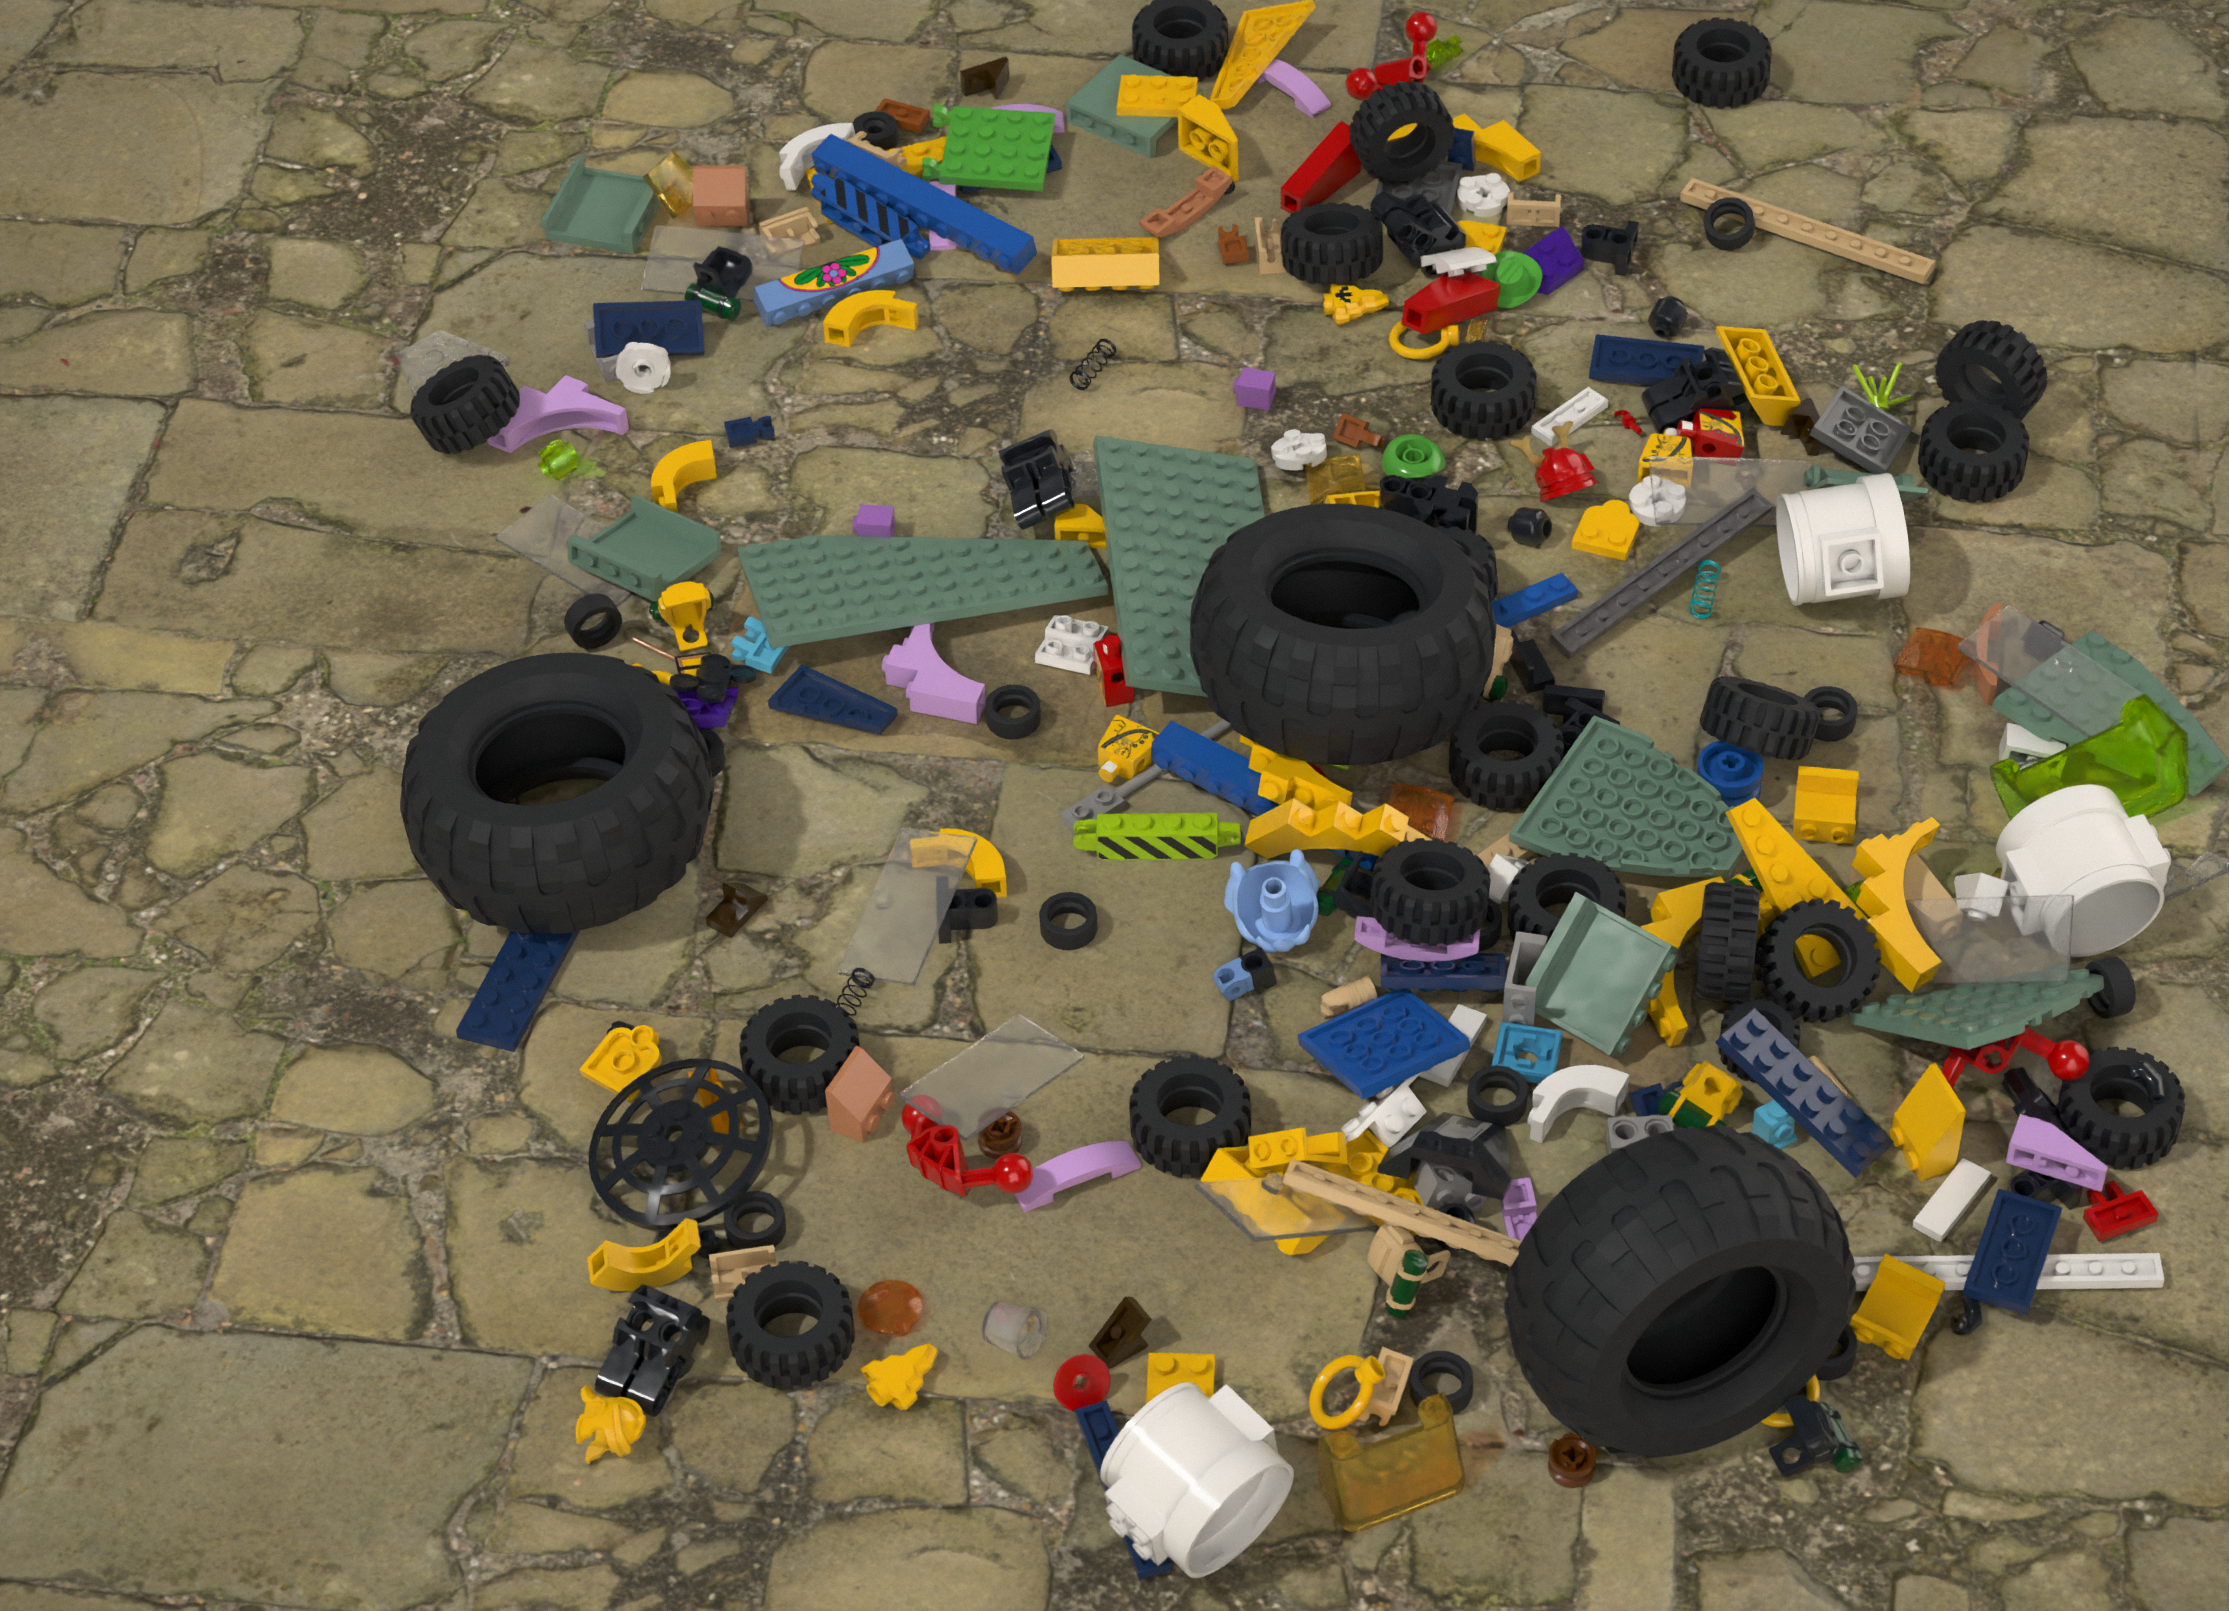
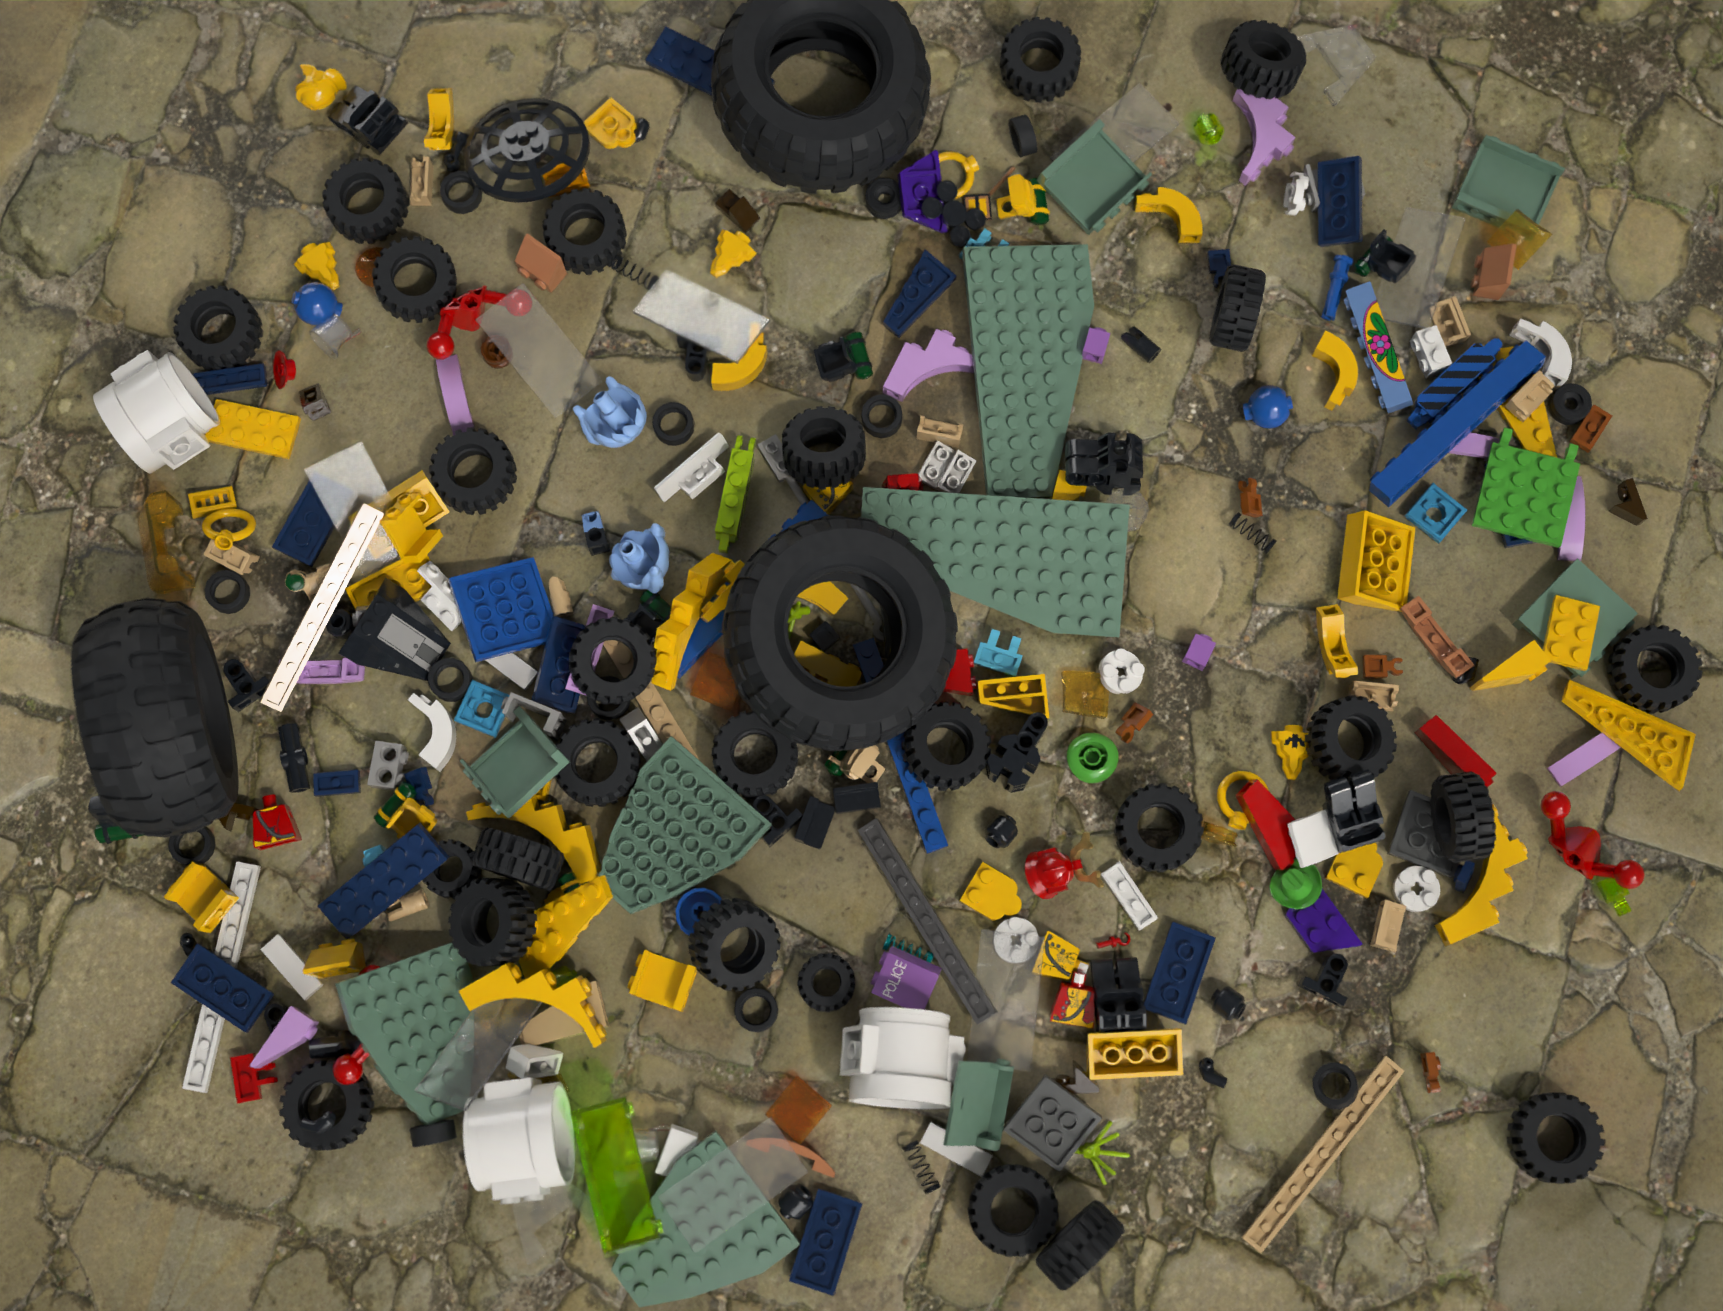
camera: 100 degrees right, 30 degrees up
(475, 595) = (1044, 35): none -> black tyre
(745, 329) = (1338, 279): none -> blue pin
(802, 899) = (731, 252): none -> yellow rock
(818, 356) = (1237, 308): none -> black tyre
(831, 240) = (1430, 351): none -> white brick
(866, 485) = (1141, 344): none -> black hinge
(911, 1260) = (408, 253): none -> black tyre
(930, 364) = (1268, 407): none -> blue brick
(940, 755) = (844, 358): none -> black piece
(969, 1352) = (315, 303): none -> blue brick
(1021, 654) = (936, 430): none -> tan hinge
(1031, 211) = (1435, 498): none -> dark azure piece
(1038, 1508) = (200, 310): none -> black tyre
(1056, 369) = (1250, 500): none -> dark orange plate
(1080, 965) = (613, 417): none -> light blue piece
(1094, 758) = (823, 468): none -> black tyre
(1136, 879) = (695, 472): none -> white bracket
(1220, 282) = (1333, 642): none -> yellow arch
(1304, 1302) = (305, 529): none -> dark blue plate
(1306, 1456) = (210, 494): none -> yellow slope
(1680, 161) = (1431, 1066): none -> dark orange plate
(1742, 576) = (905, 979): none -> medium lavender brick
(1756, 320) = (1209, 1075): none -> black arm
(1771, 649) = (846, 988): none -> black tyre
(1923, 519) = (966, 1156): none -> white tile
(1940, 550) = (910, 1147): none -> black piece
(2082, 609) = (825, 1242): none -> dark blue plate

